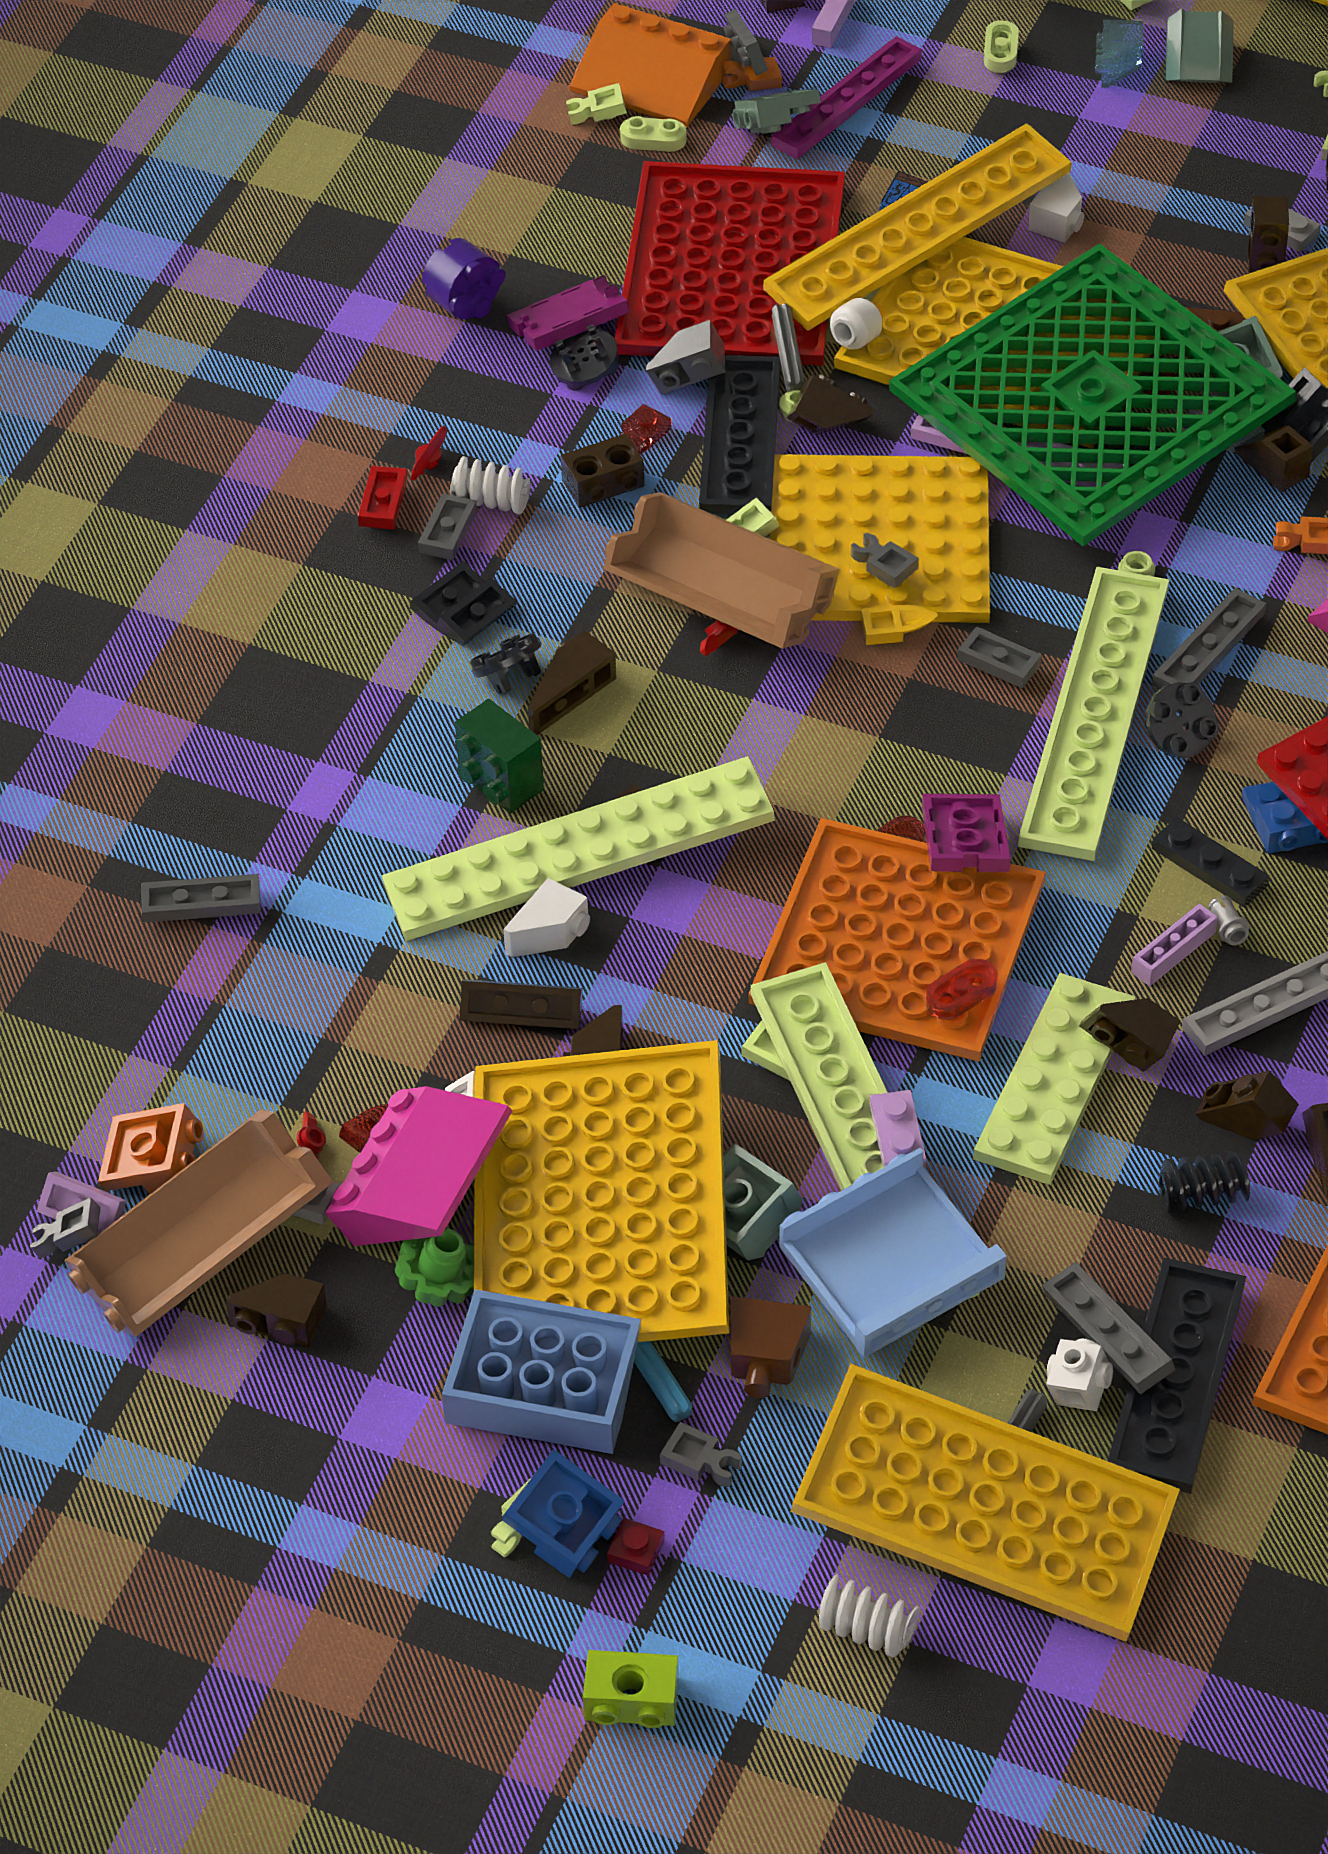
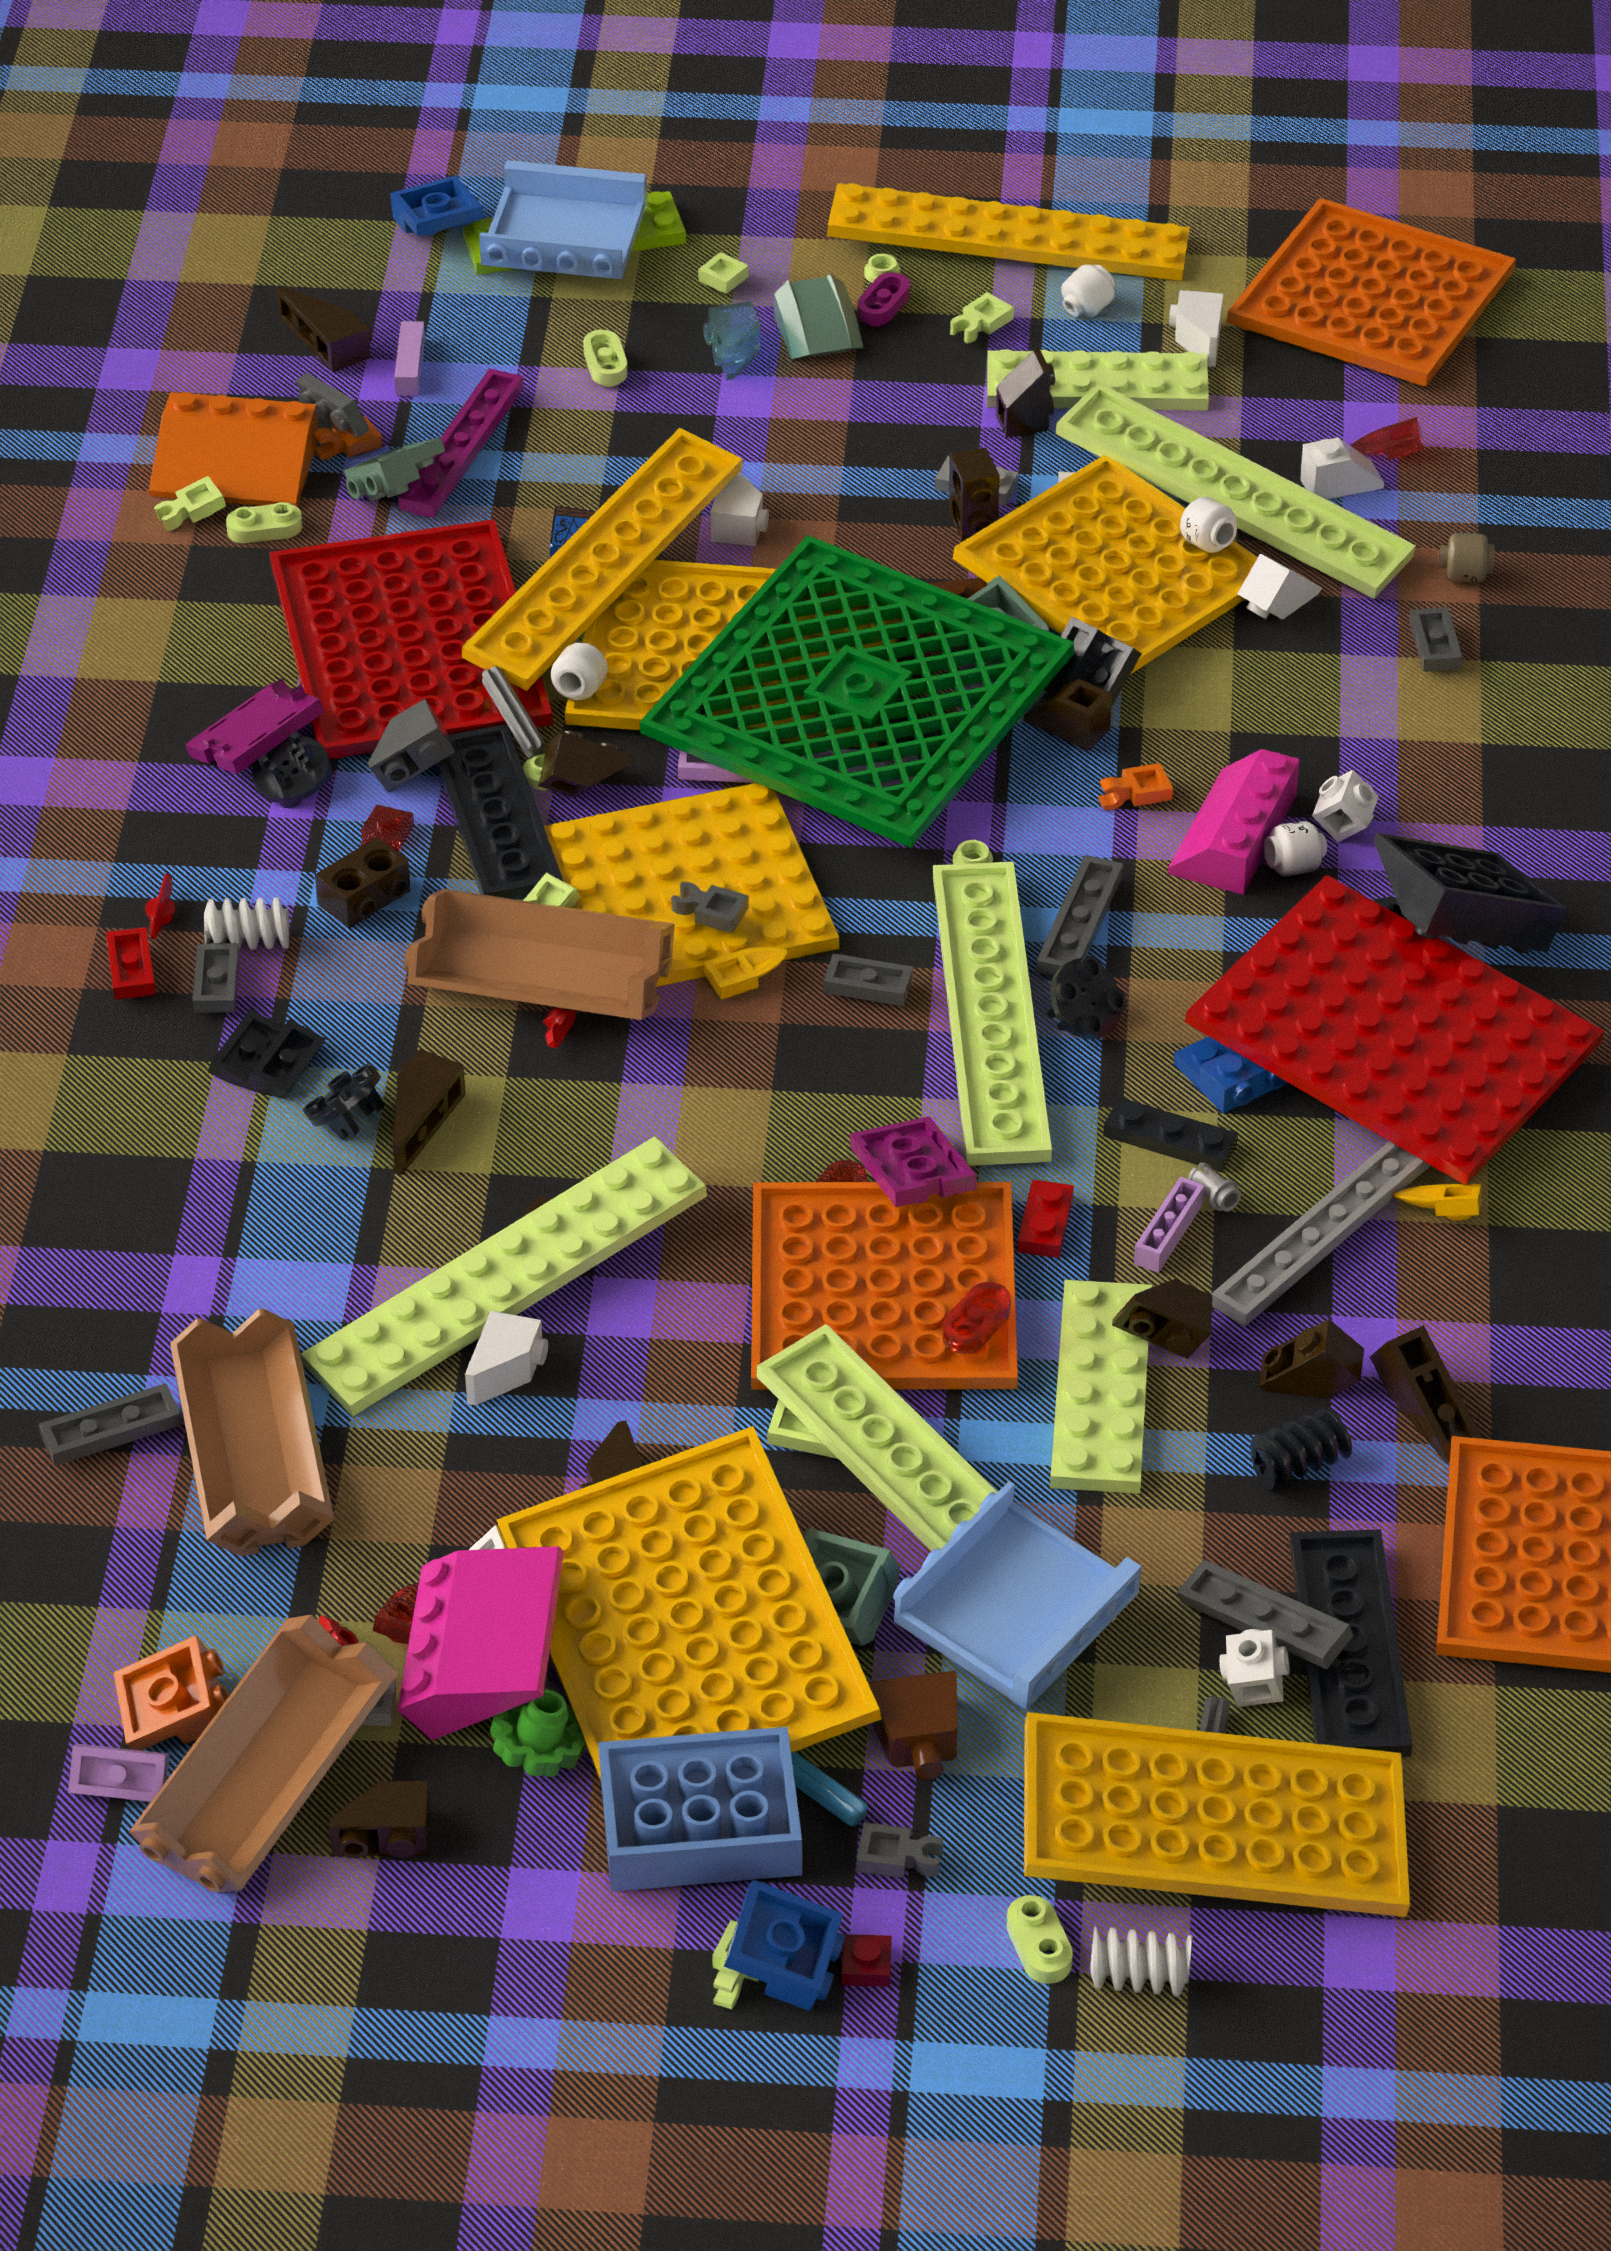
camera: 20 degrees left, 5 degrees down
(72, 1228) = (118, 1799): dark grey plate -> none
(309, 936) = (251, 1434): none -> medium nougat panel
(463, 279) = (126, 715): dark purple brick -> none
(499, 756) = (383, 1198): dark green brick -> none
(521, 1004) = (511, 1447): dark brown plate -> none
(614, 1672) = (940, 2079): lime brick -> none
(793, 1566) = (1036, 1935): none -> yellowish green plate
(896, 1124) = (967, 1469): lavender plate -> none
(1068, 912) = (1045, 1218): none -> red plate
(1265, 42) = (883, 299): none -> magenta plate
(1275, 15) = (879, 265): none -> yellowish green plate

